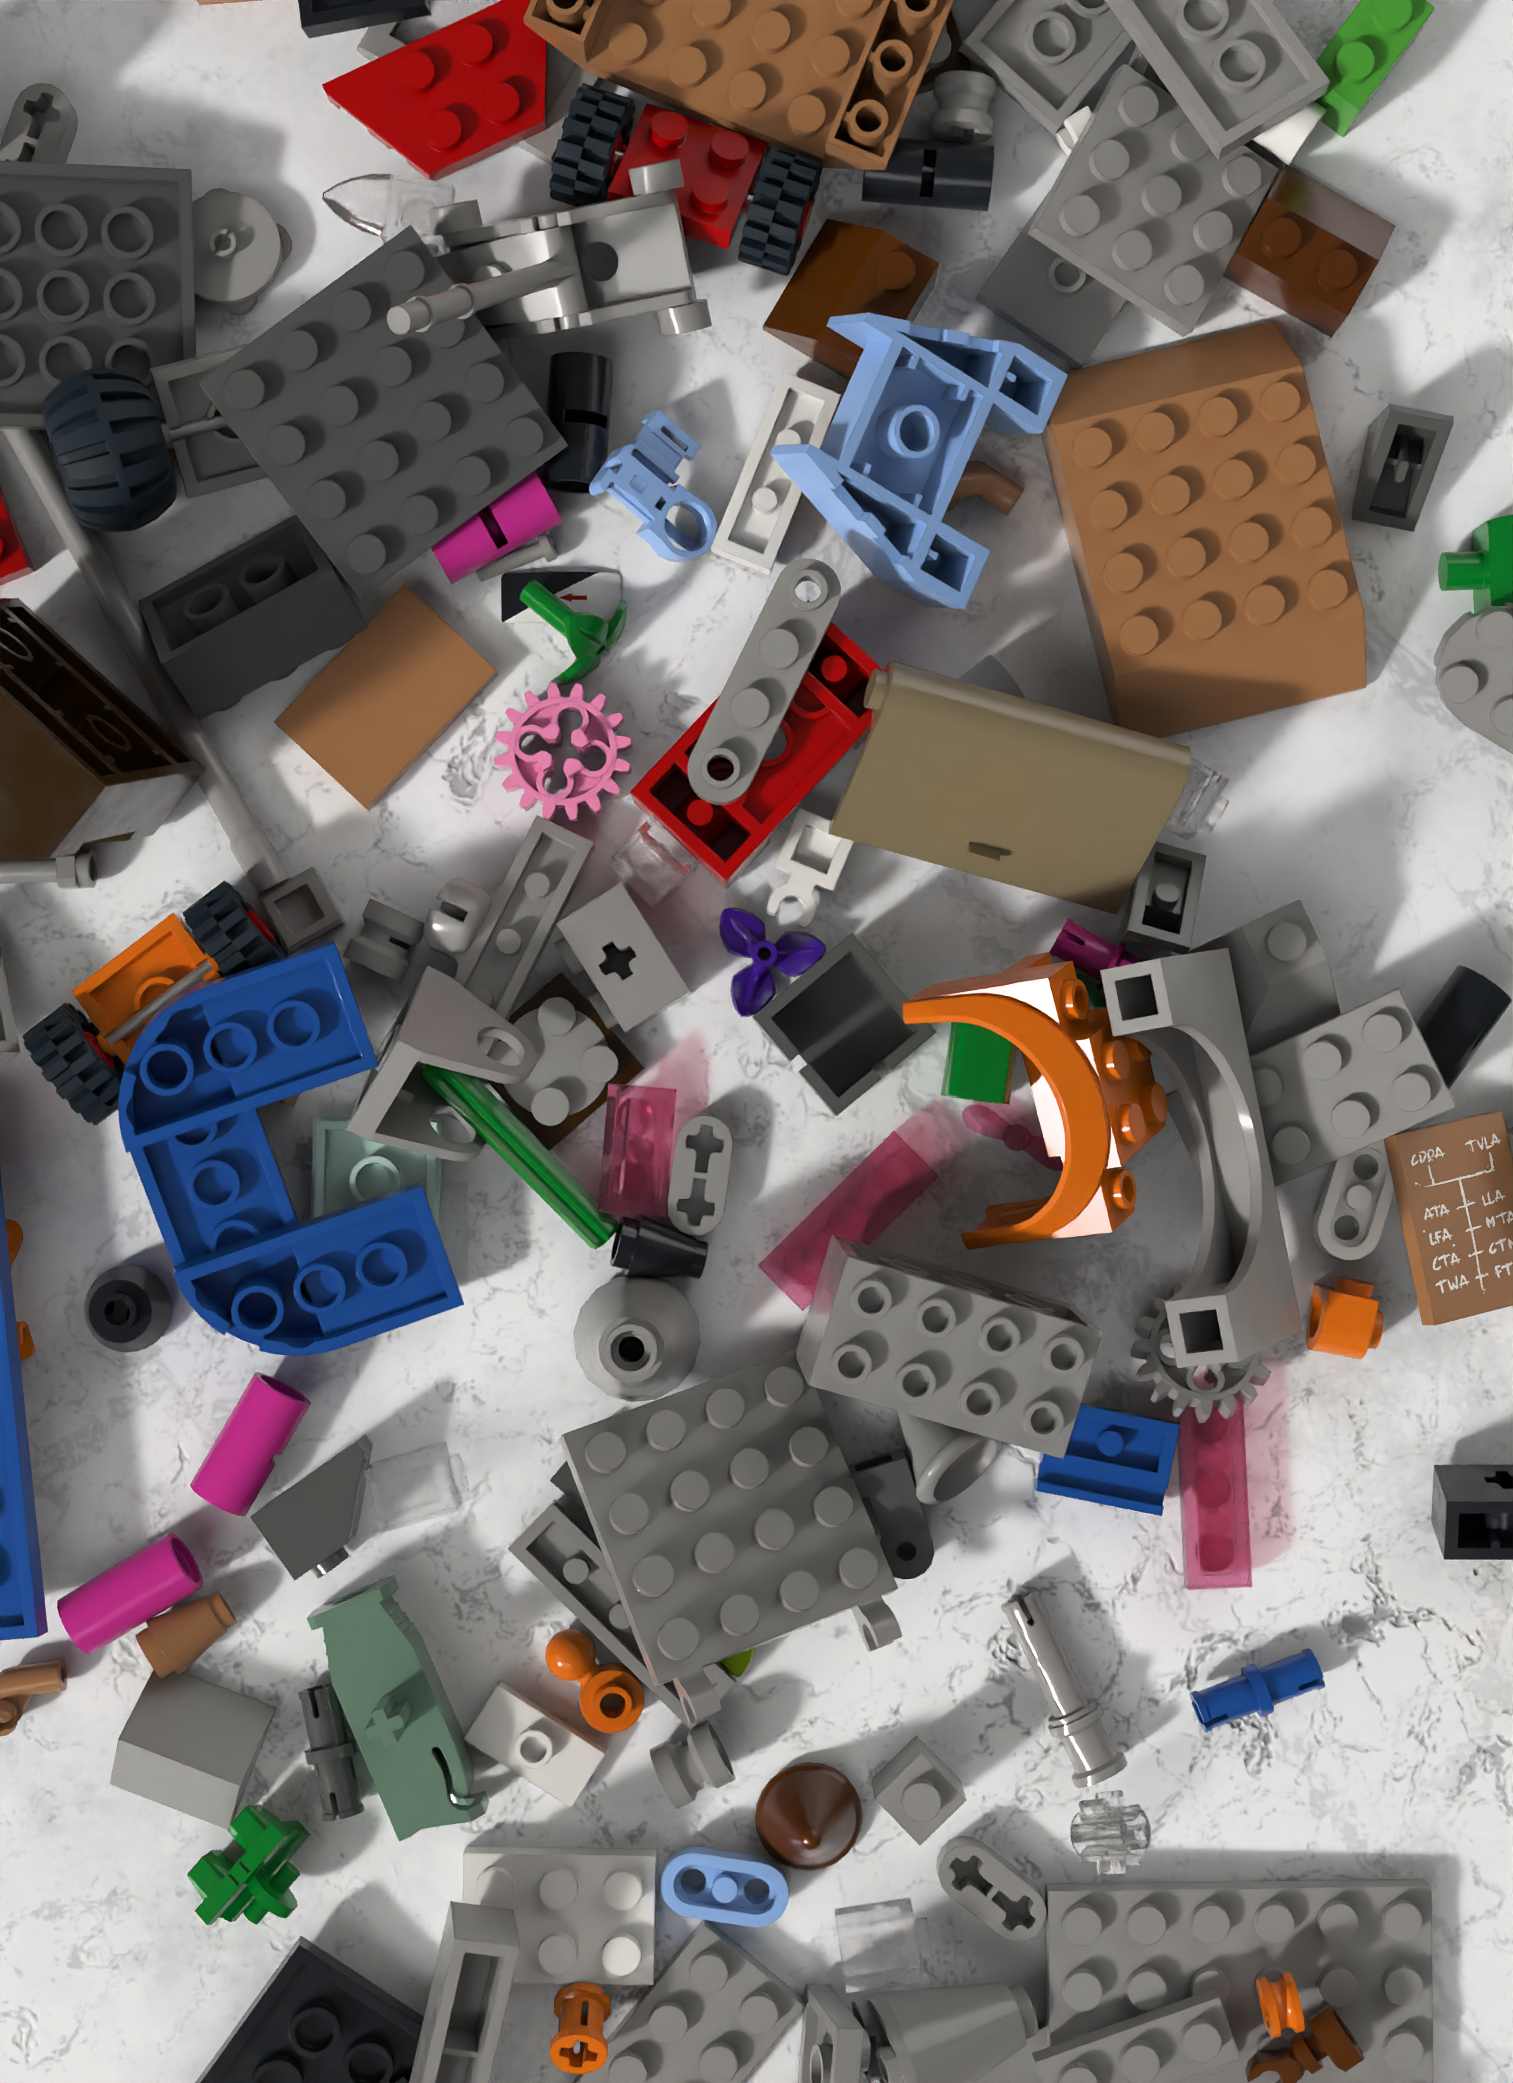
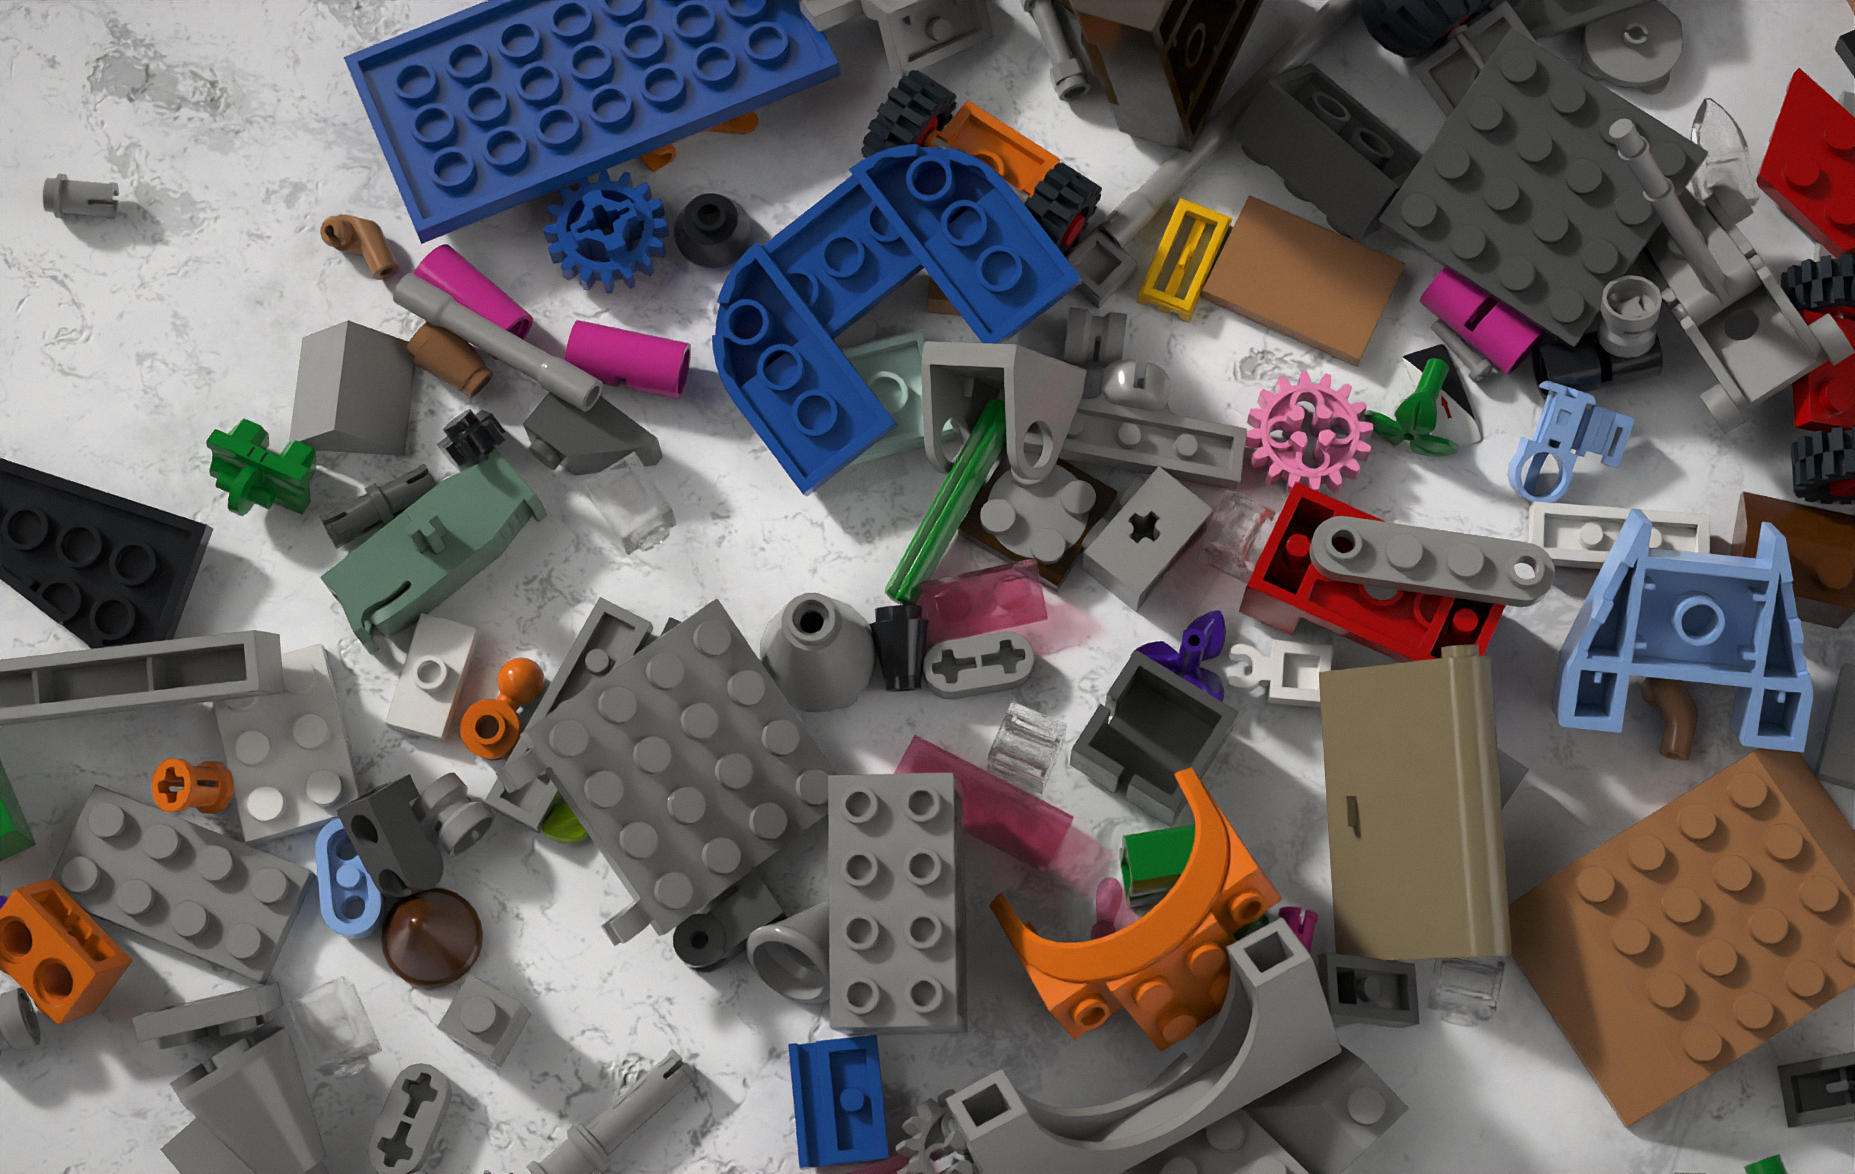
camera: 80 degrees right, 15 degrees down
(94, 1450) = (583, 241): none -> blue gear
(139, 1631) = (550, 372): none -> light grey piece
(288, 1636) = (470, 437): none -> black plate
(363, 849) = (1167, 300): none -> yellow tile
(542, 367) = (1629, 316): none -> light grey wheel
(704, 1838) = (392, 840): none -> dark grey leg
(812, 1157) = (1026, 747): none -> clear brick

